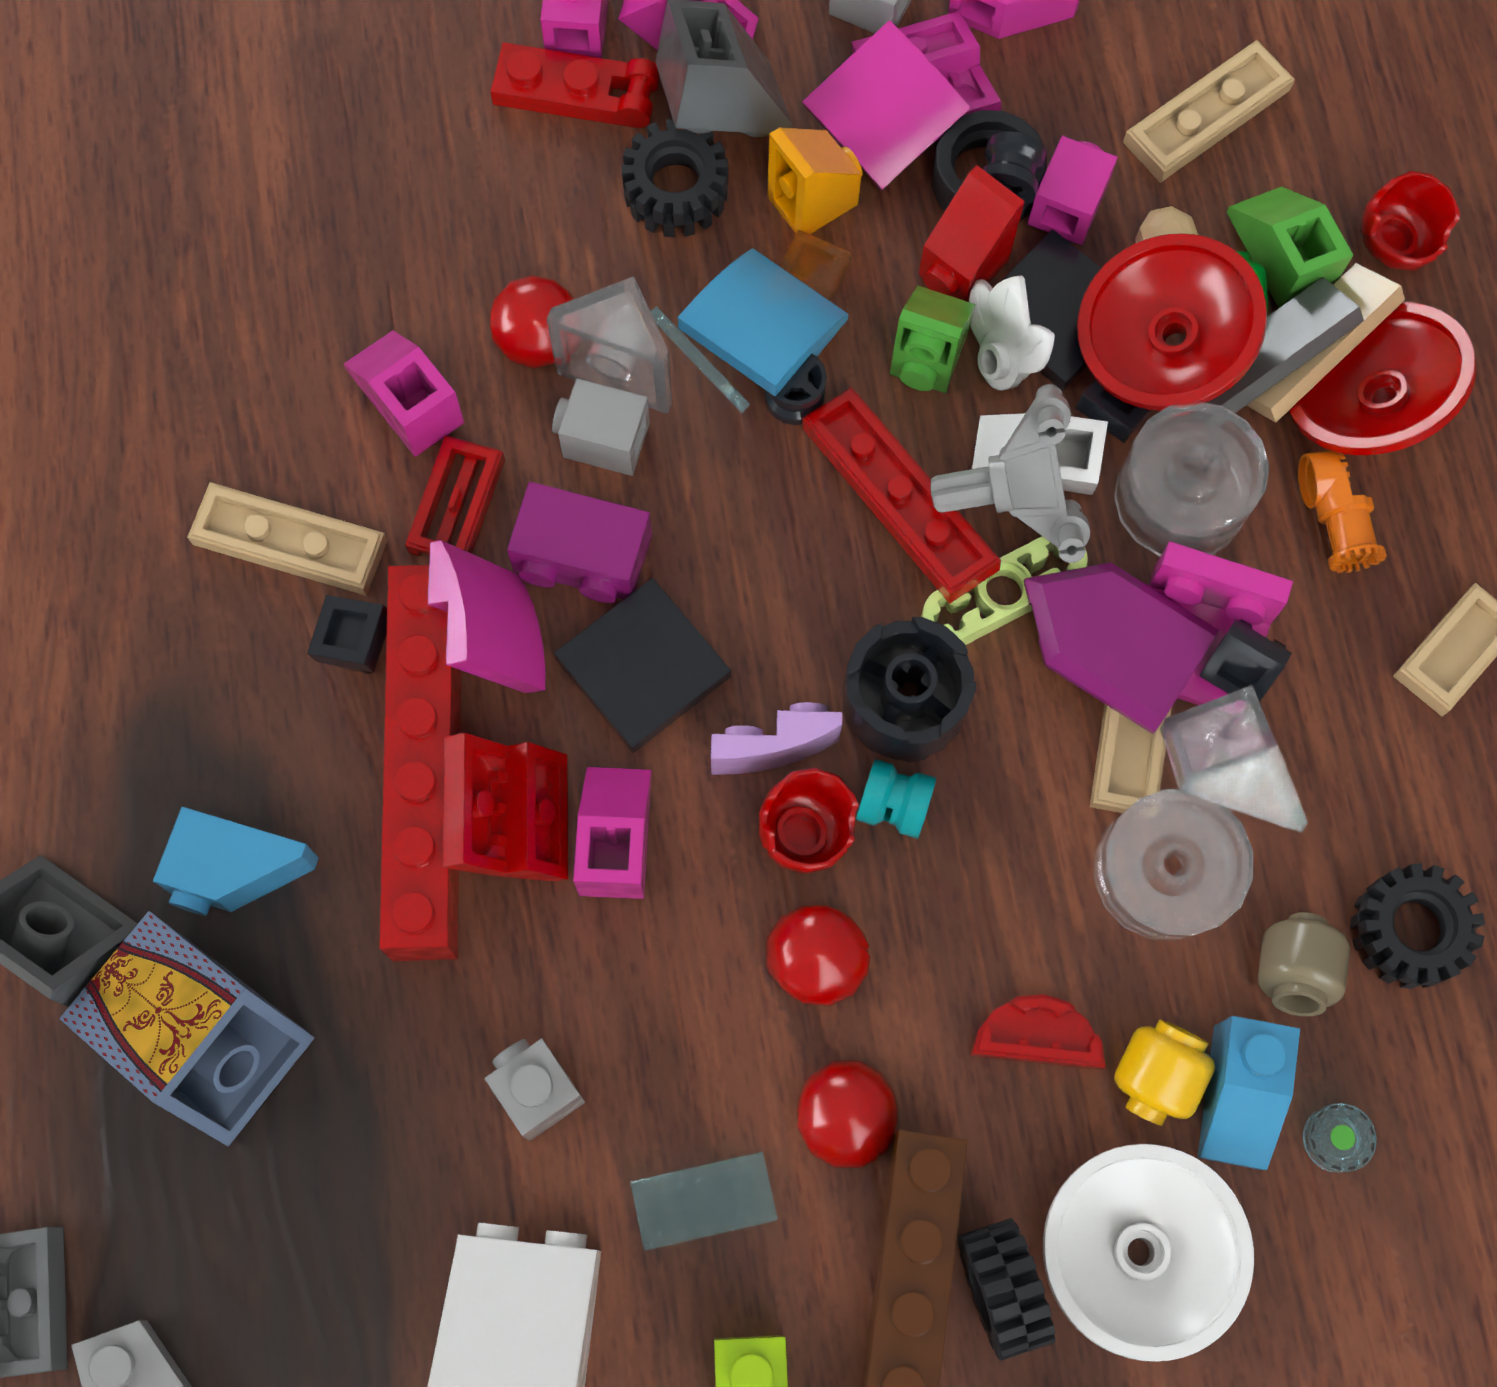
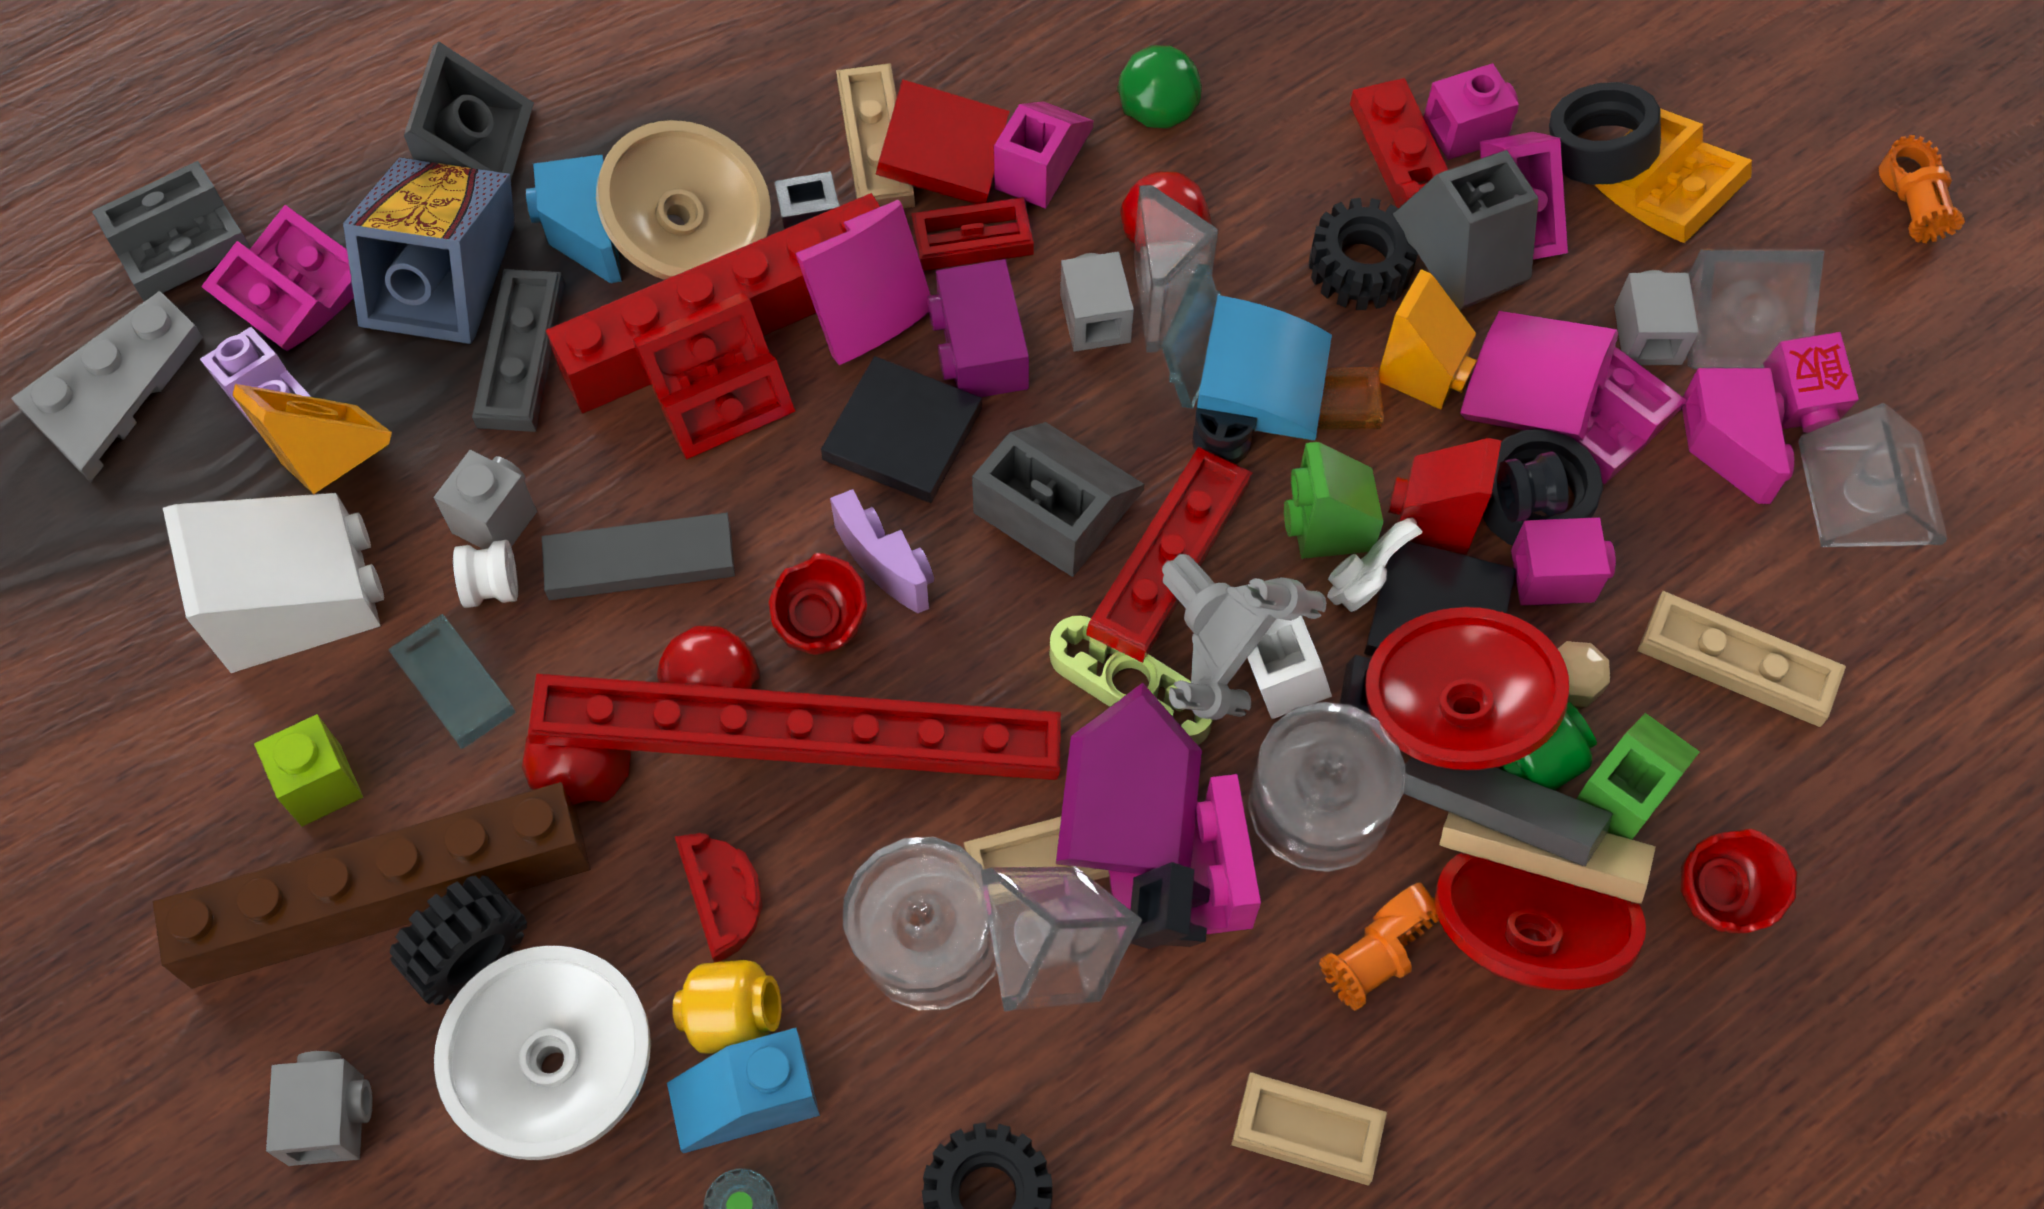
camera: 65 degrees right, 10 degrees down
(129, 1200) = (286, 281): none -> dark pink slope
(254, 1275) = (249, 362): none -> lavender slope
(290, 720) = (687, 174): none -> tan dish
(341, 477) = (942, 142): none -> red tile
(352, 990) = (518, 351): none -> dark grey tile
(370, 1229) = (312, 435): none -> light orange slope
(386, 253) = (1159, 86): none -> green hair
(611, 1121) = (485, 573): none -> white wheel
(613, 833) = (733, 461): dark pink slope -> none
(656, 969) = (637, 556): none -> dark grey tile
(797, 560) = (1052, 494): none -> dark grey slope
(896, 798) = (877, 664): teal wheel -> none
(917, 654) = (987, 661): black brick -> none
(921, 906) = (794, 727): none -> red tile
(1303, 964) = (893, 1094): dark tan head -> none

